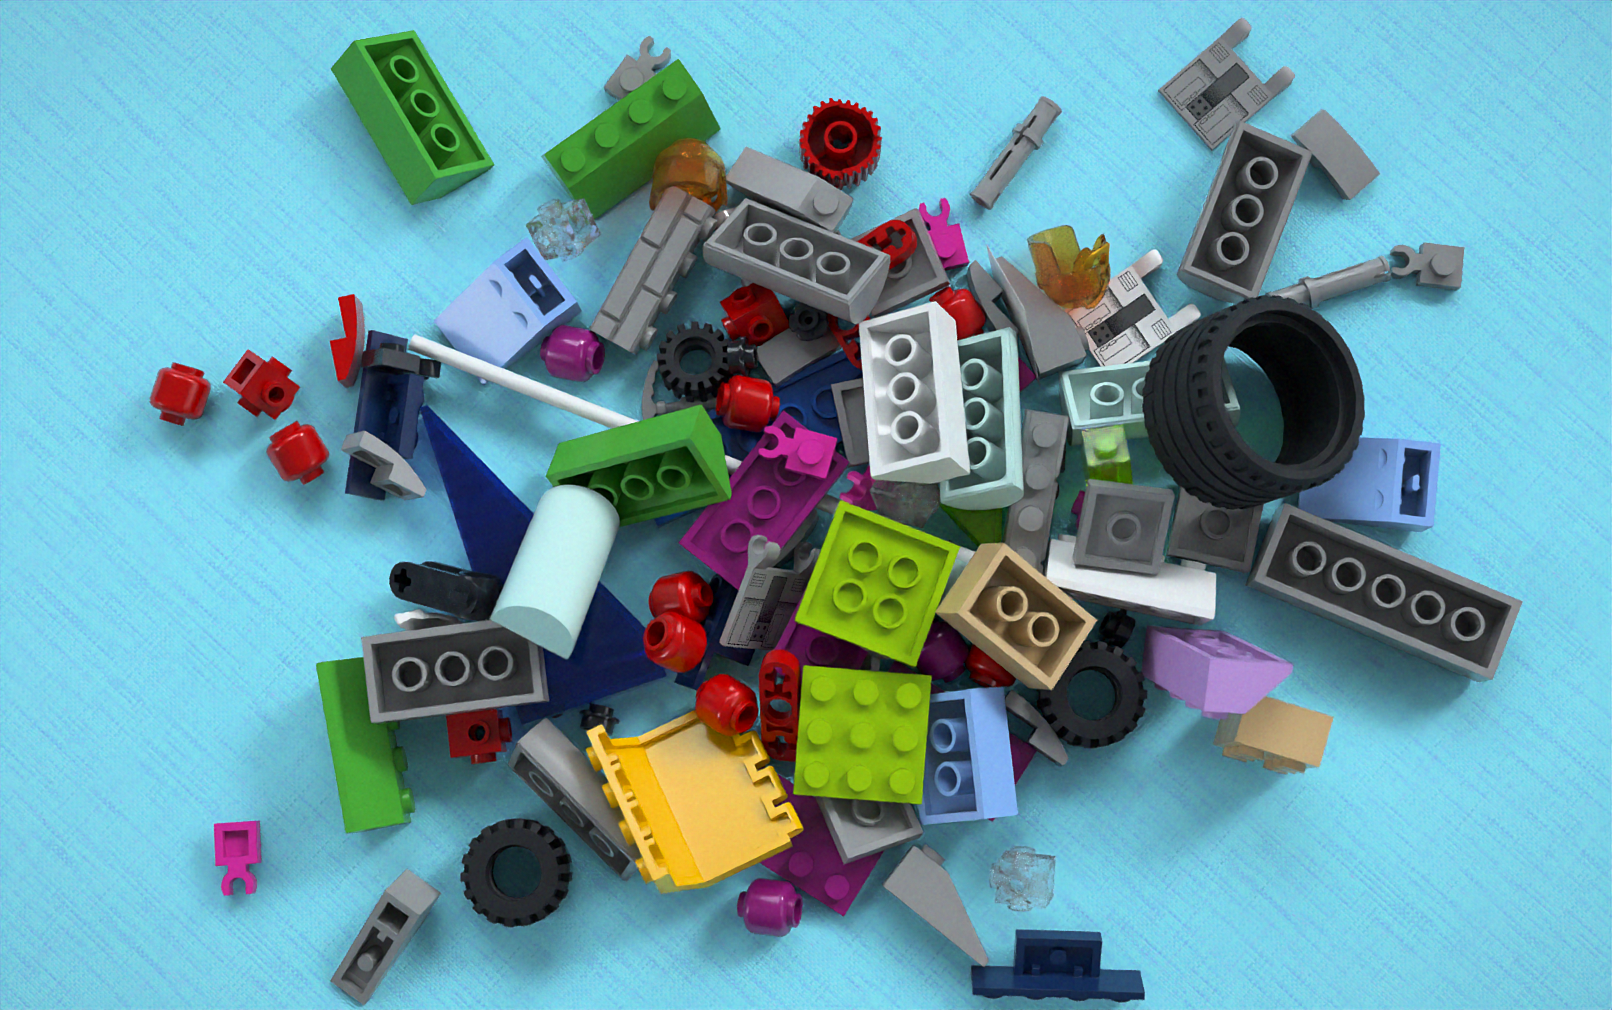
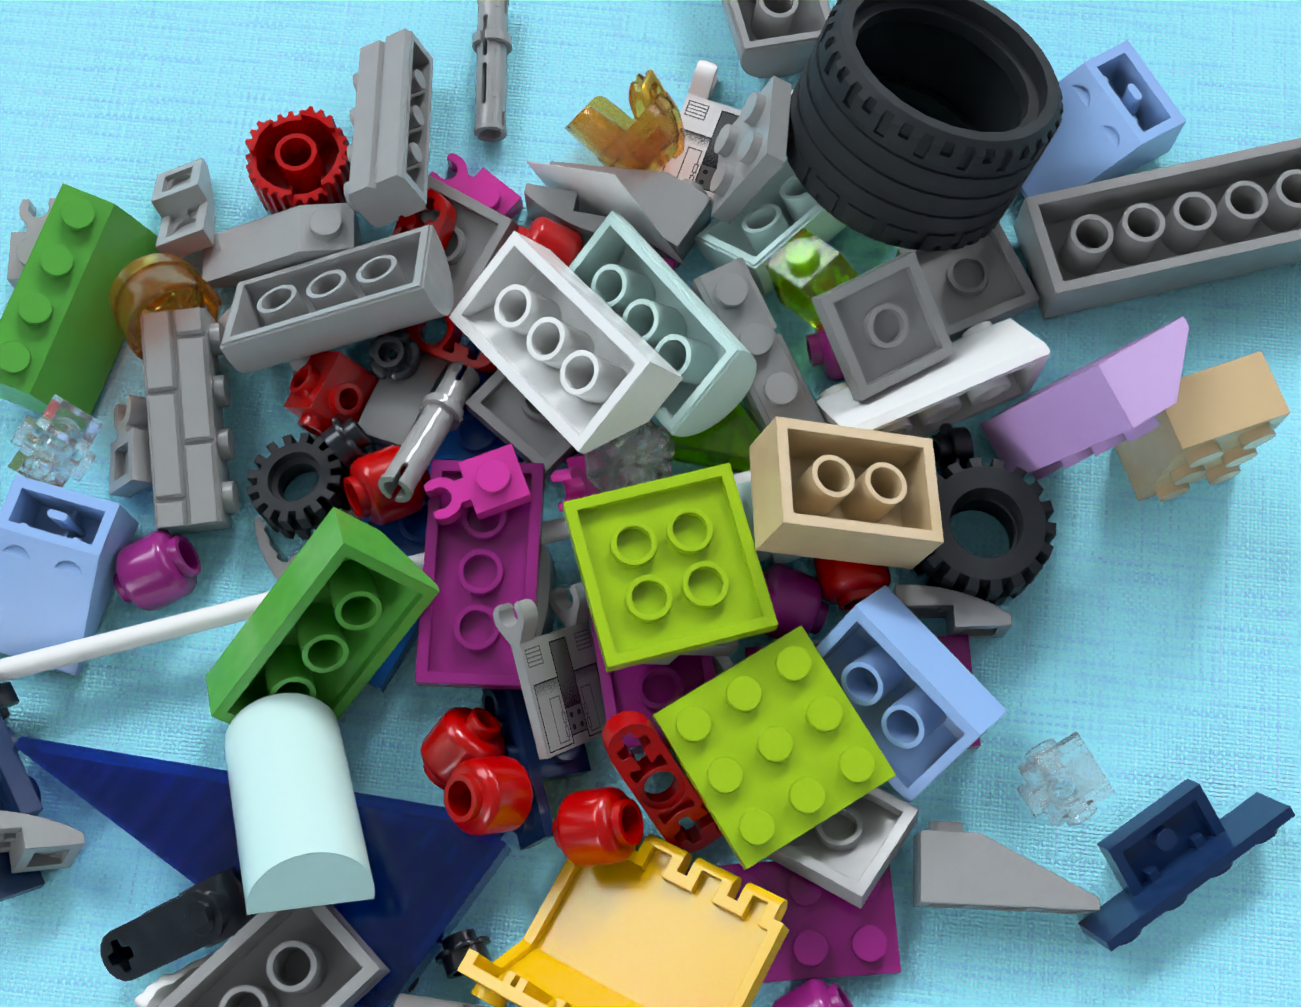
camera: 35 degrees left, 10 degrees down
(608, 262) = (131, 450): none -> light grey plate
(748, 117) = (186, 209): none -> light grey slope
(809, 382) = (440, 413): none -> light grey pin
(913, 161) = (390, 129): none -> light grey brick
(1132, 345) = (751, 149): none -> light grey plate

